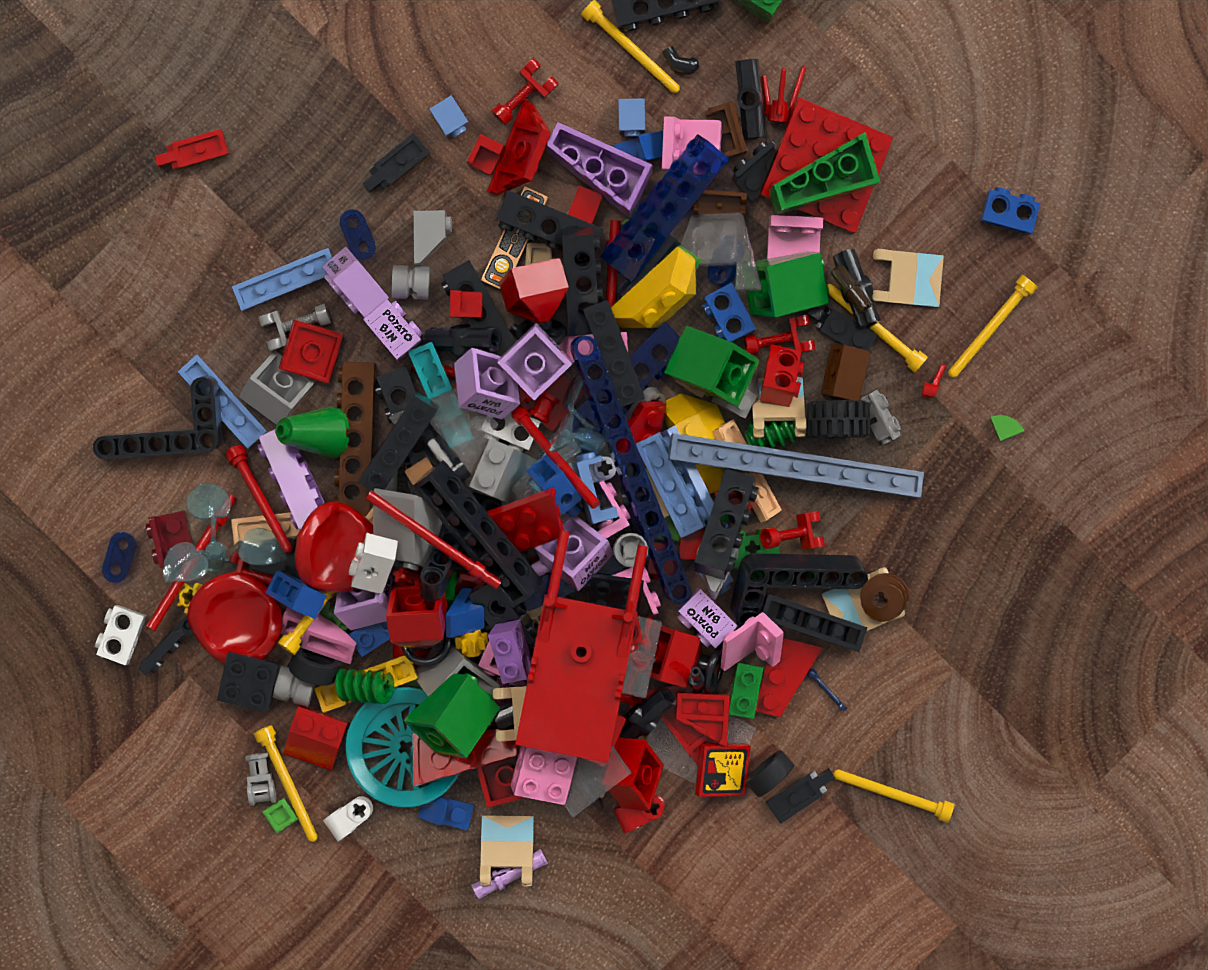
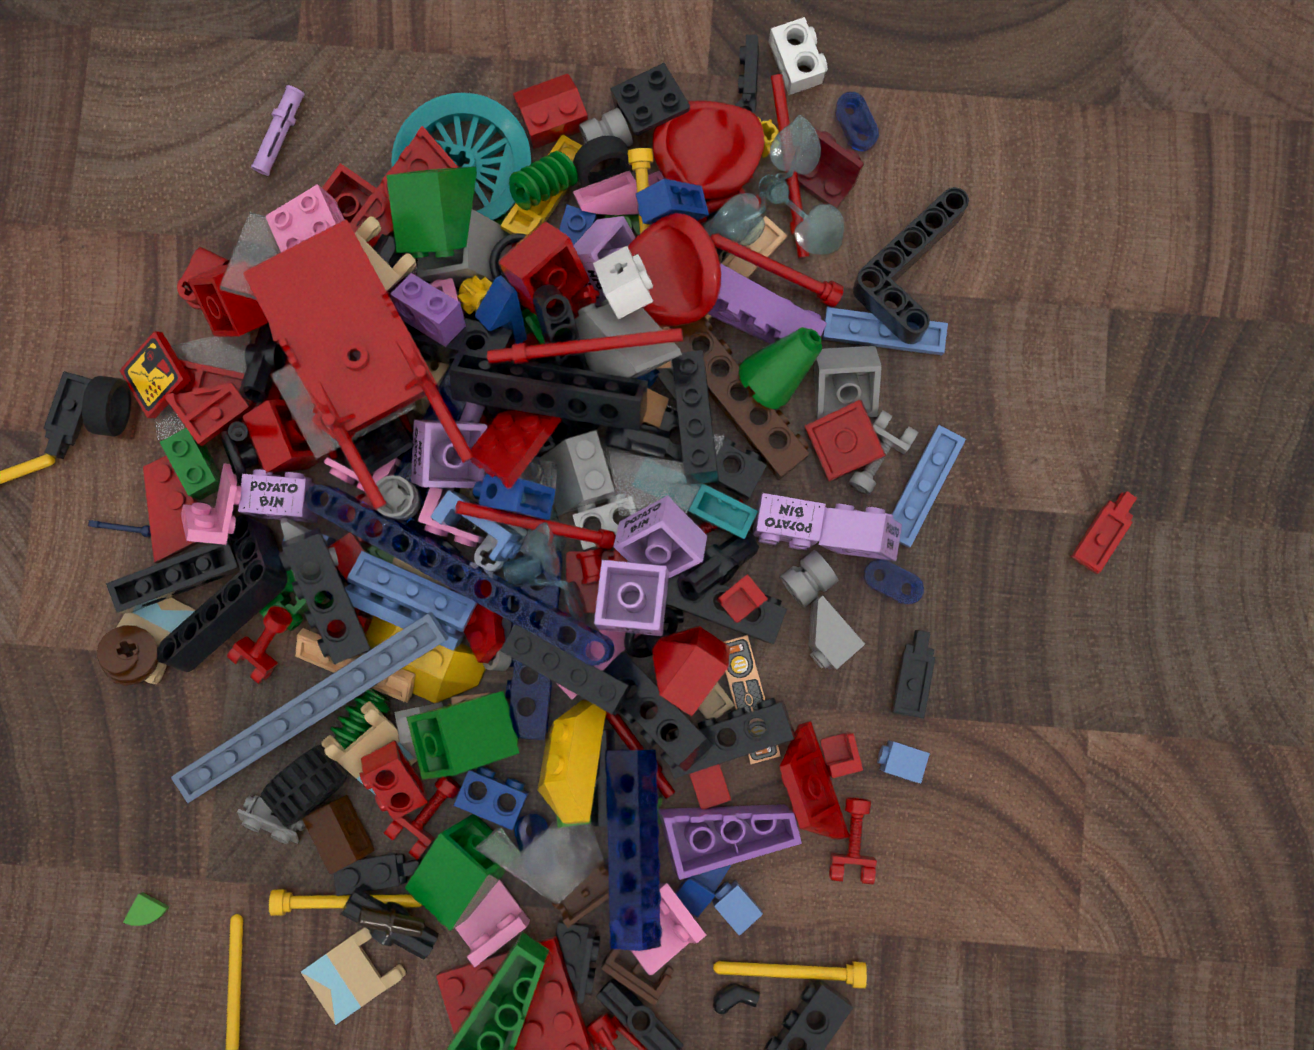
camera: 140 degrees right, 5 degrees down
(259, 781) = (566, 30): light grey connector -> none
(267, 738) = (594, 73): yellow piece -> none
(280, 815) = (525, 19): bright green tile -> none
(345, 818) = (462, 63): white piece -> none
(447, 812) = (377, 140): blue slope -> none
(507, 844) = (300, 151): tan flag -> none
(930, 390) = (243, 888): red hand -> none

